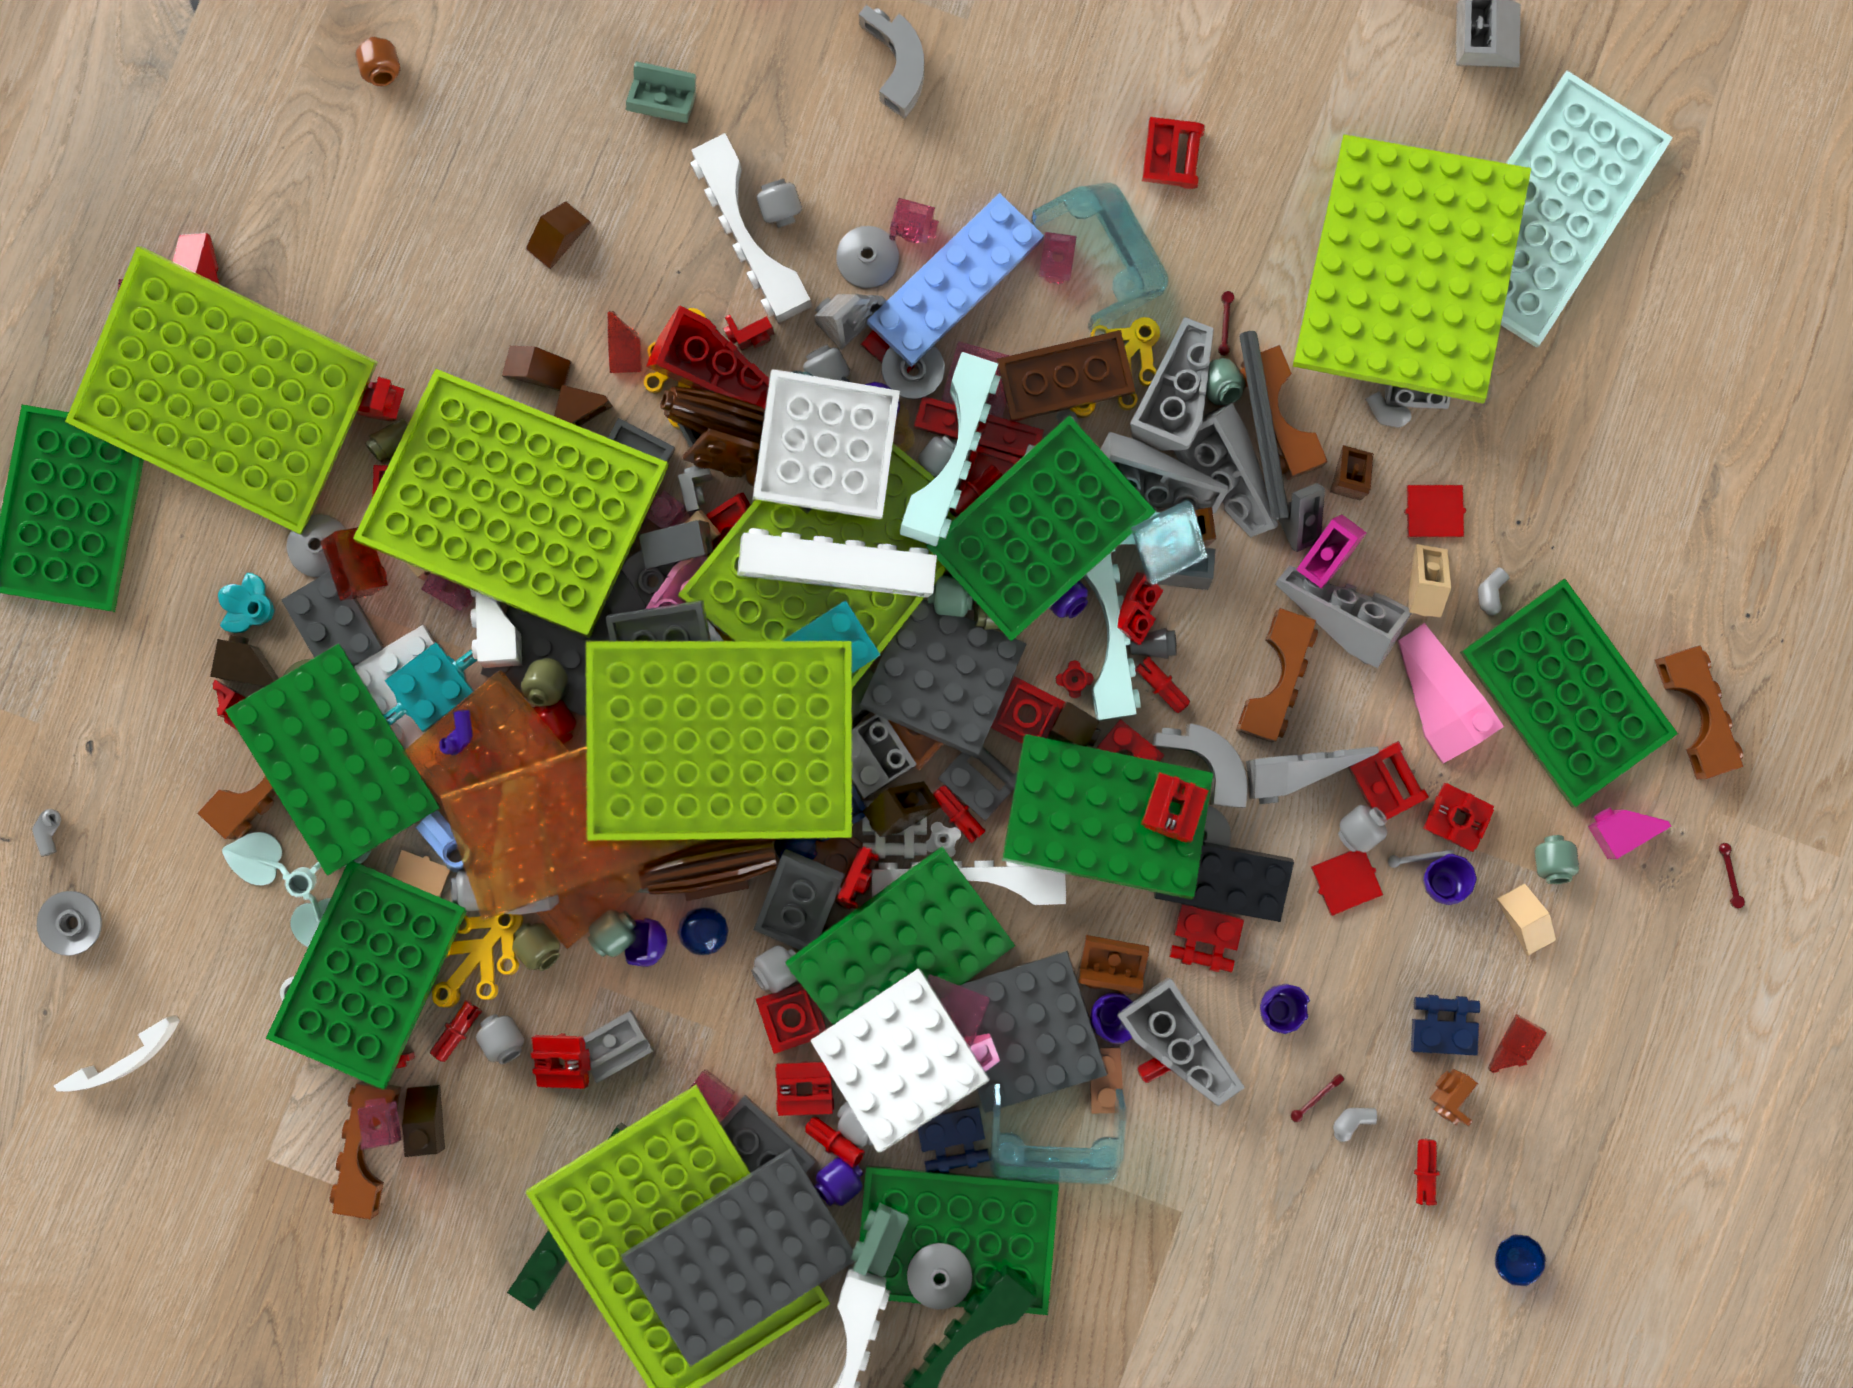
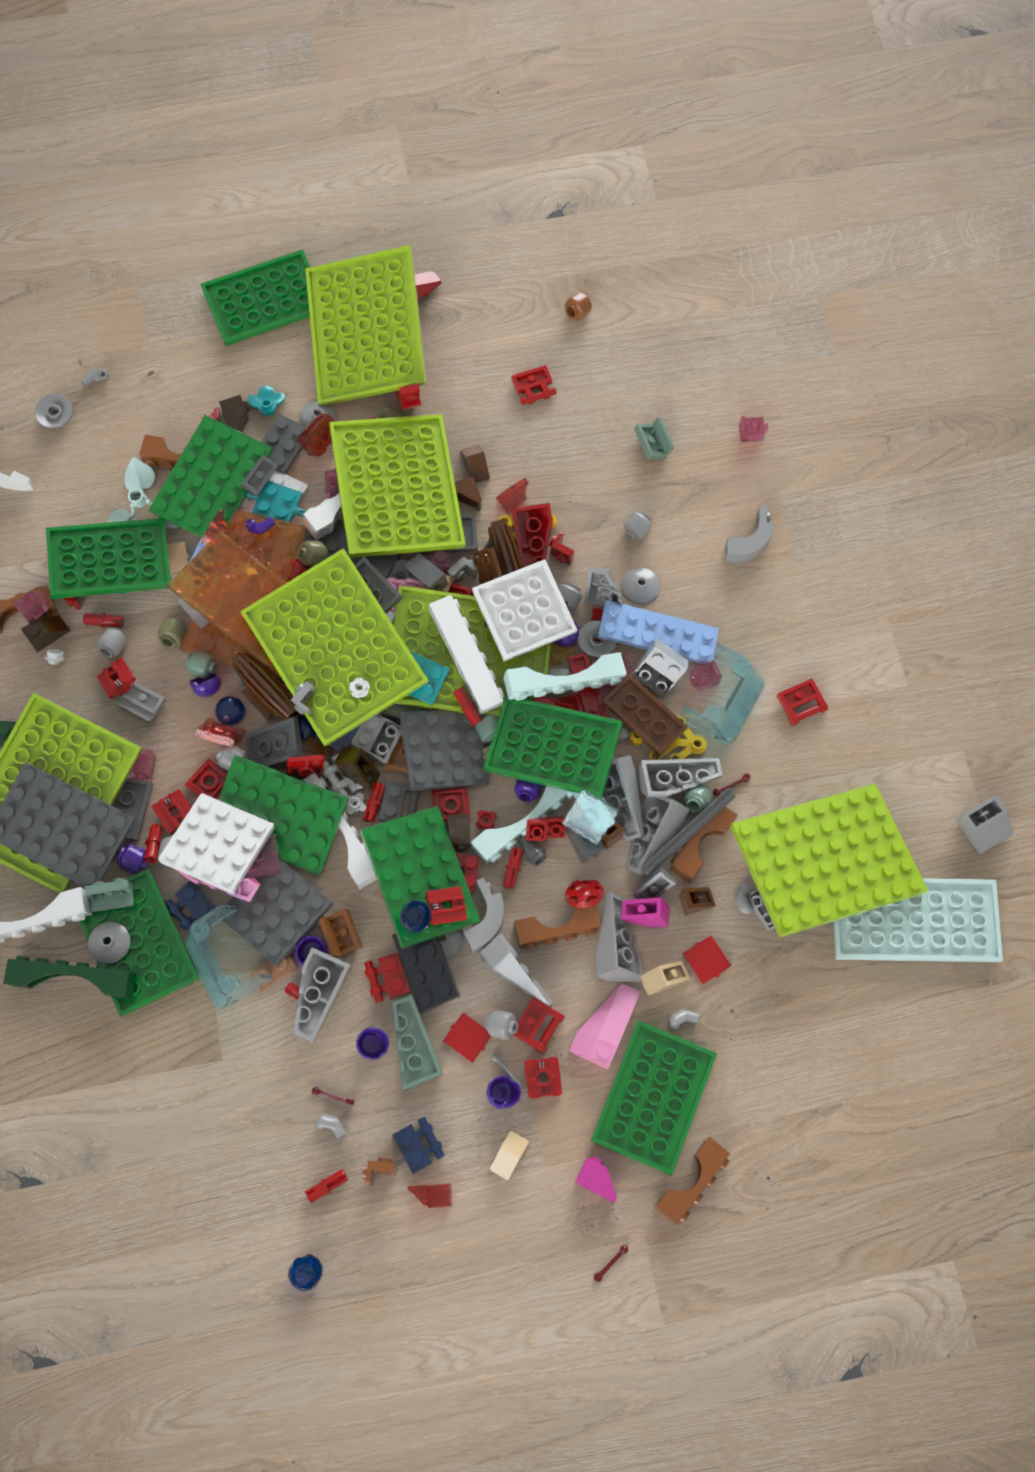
camera: 55 degrees right, 15 degrees down
(375, 687) = (259, 475): none -> dark grey plate
(424, 800) = (218, 524): none -> clear red slope
(456, 203) = (532, 380): none -> red plate
(470, 1129) = (54, 656): none -> white plate
(480, 953) = (151, 609): yellow plant -> none
(556, 233) = (549, 433): reddish brown slope -> none
(732, 965) = (220, 733): none -> clear red plate
(765, 825) = (301, 696): none -> light grey bracket
(780, 285) = (634, 490): white arch -> none
(797, 738) = (364, 688): none -> white plate
(909, 607) = (467, 706): none -> red axle
(913, 222) = (673, 594): clear pink brick -> none
(1010, 309) = (660, 668): none -> light grey slope
(1170, 858) = (415, 916): none -> clear blue hair
(1257, 613) = (583, 892): none -> red wheel
(1324, 958) = (415, 1050): none -> sand green wing
(1556, 860) = (553, 1149): sand green head -> none

